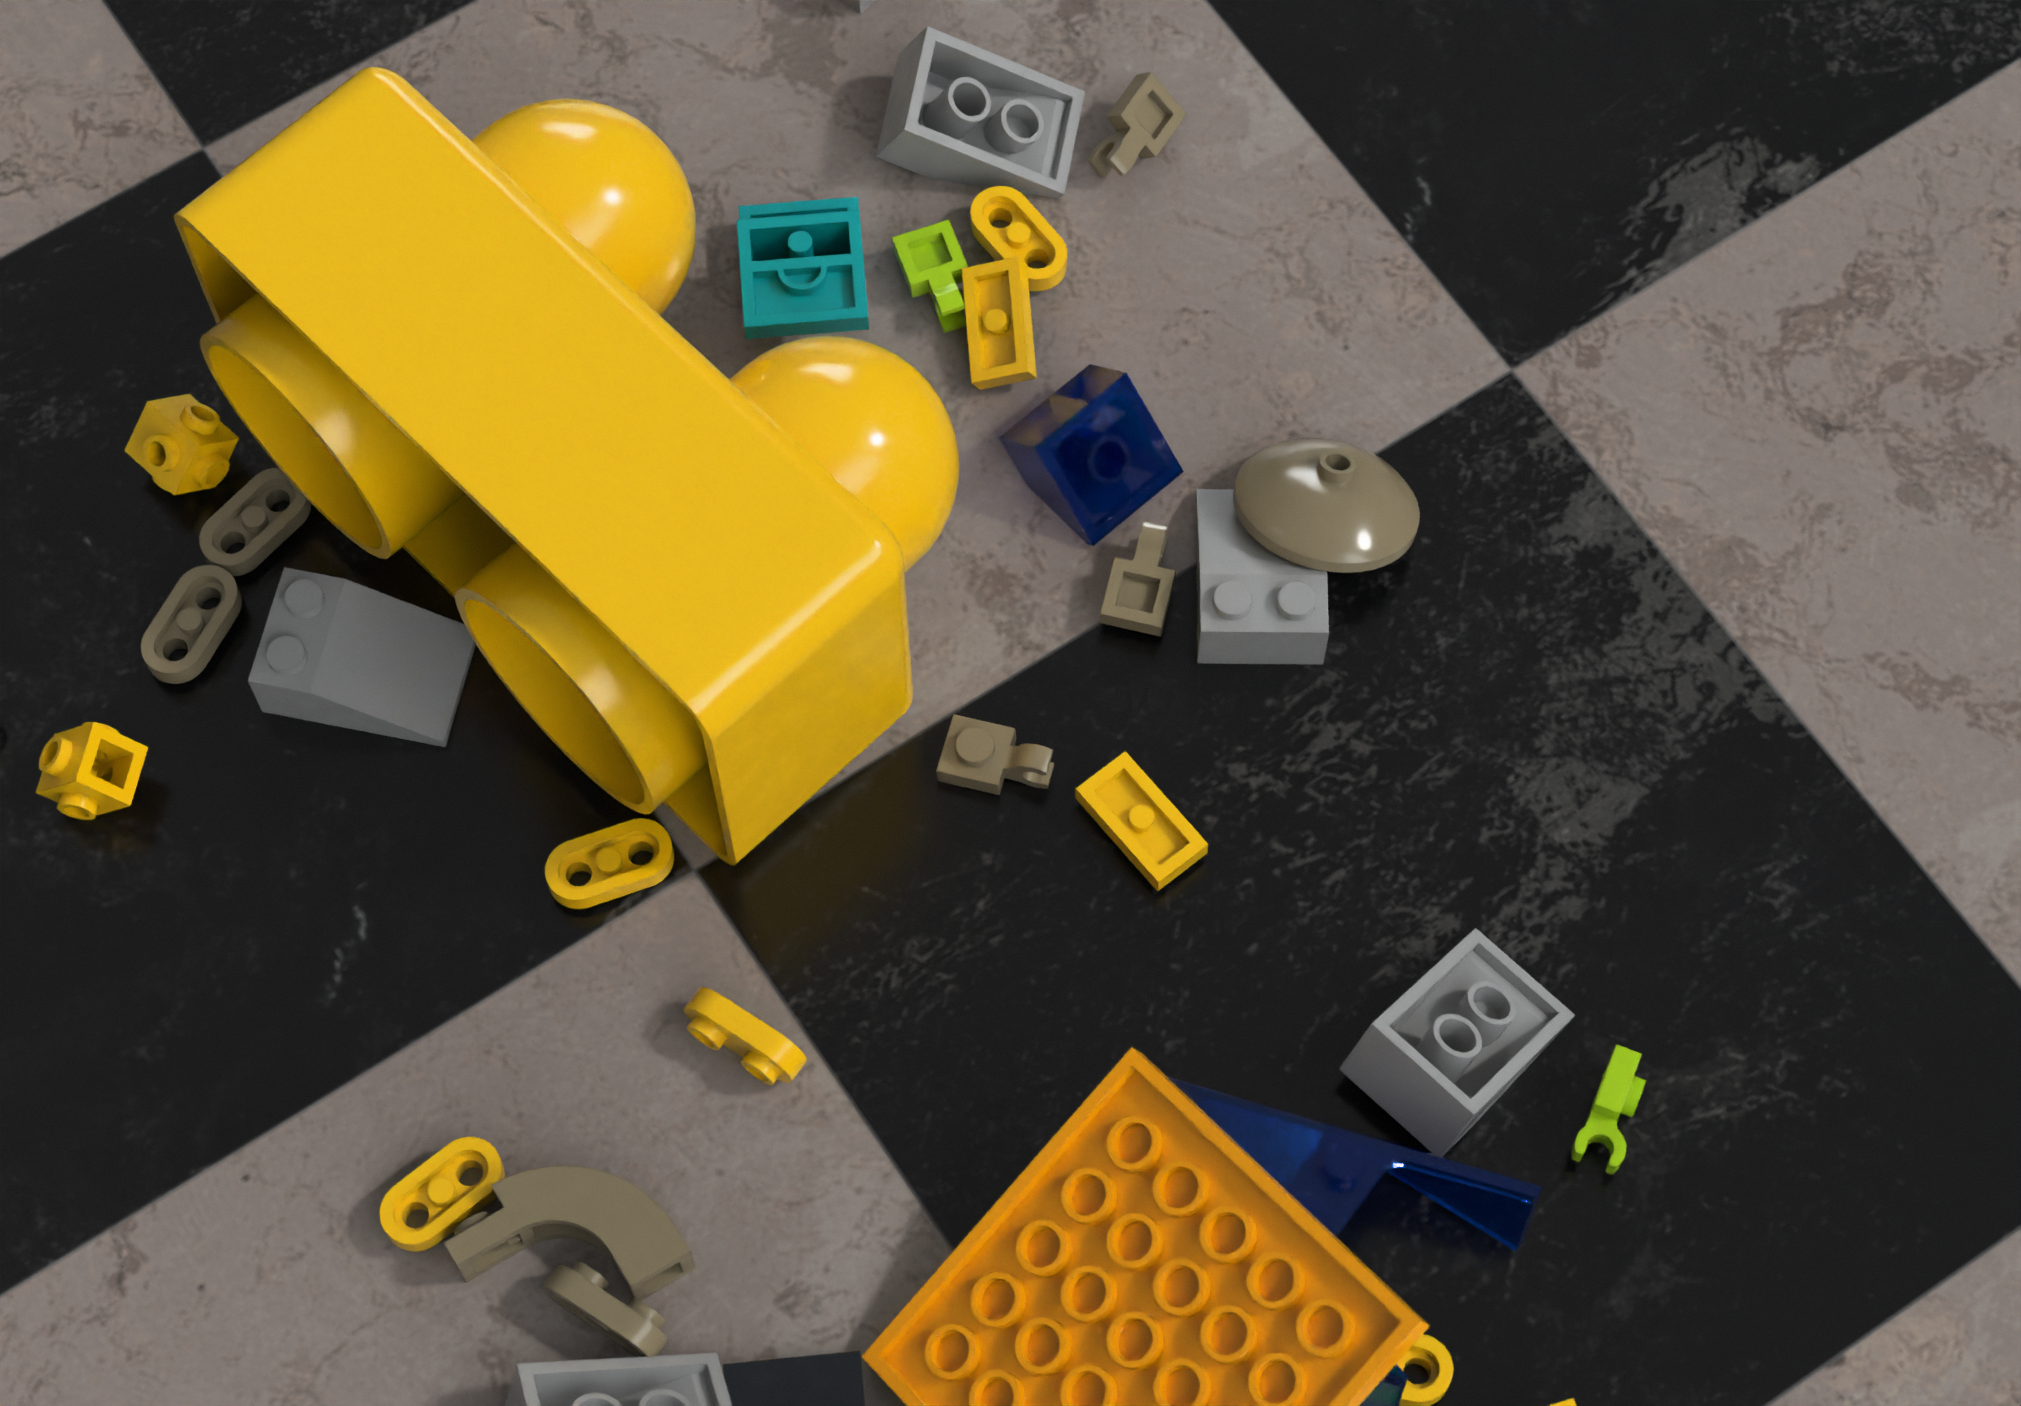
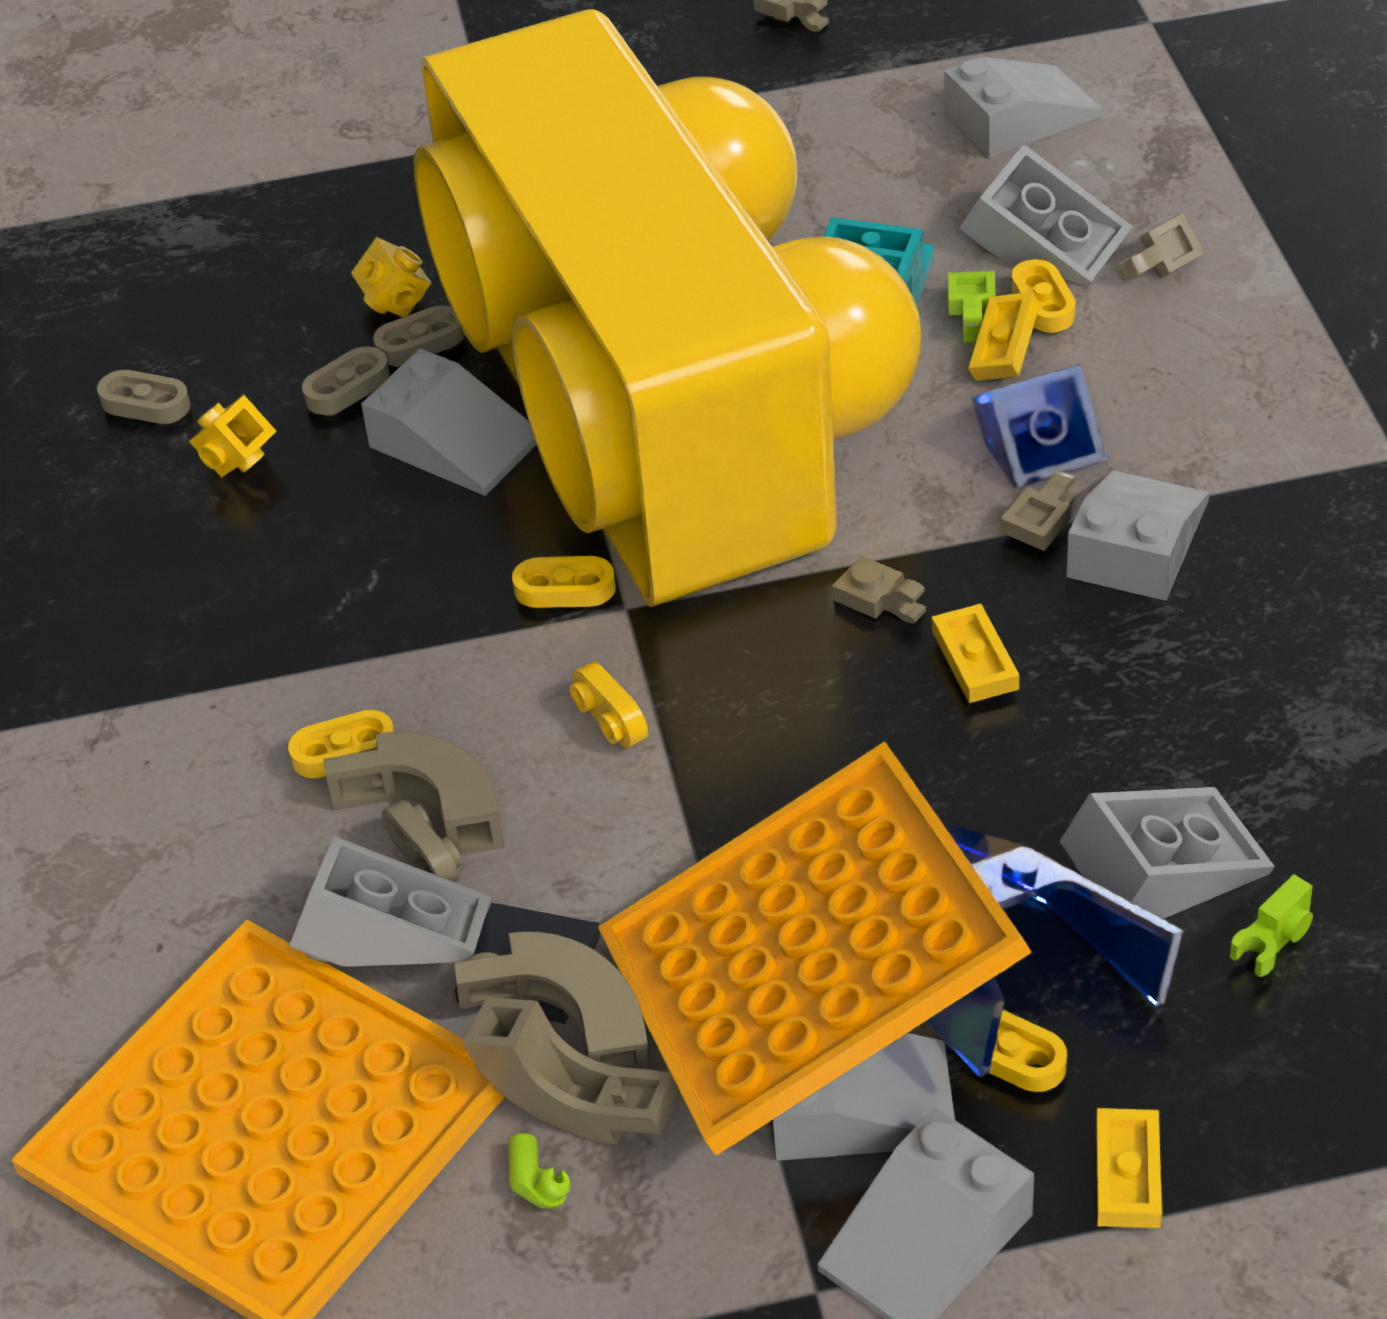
camera: 25 degrees right, 20 degrees down
(1326, 505) = (1208, 488): dark tan dish -> none

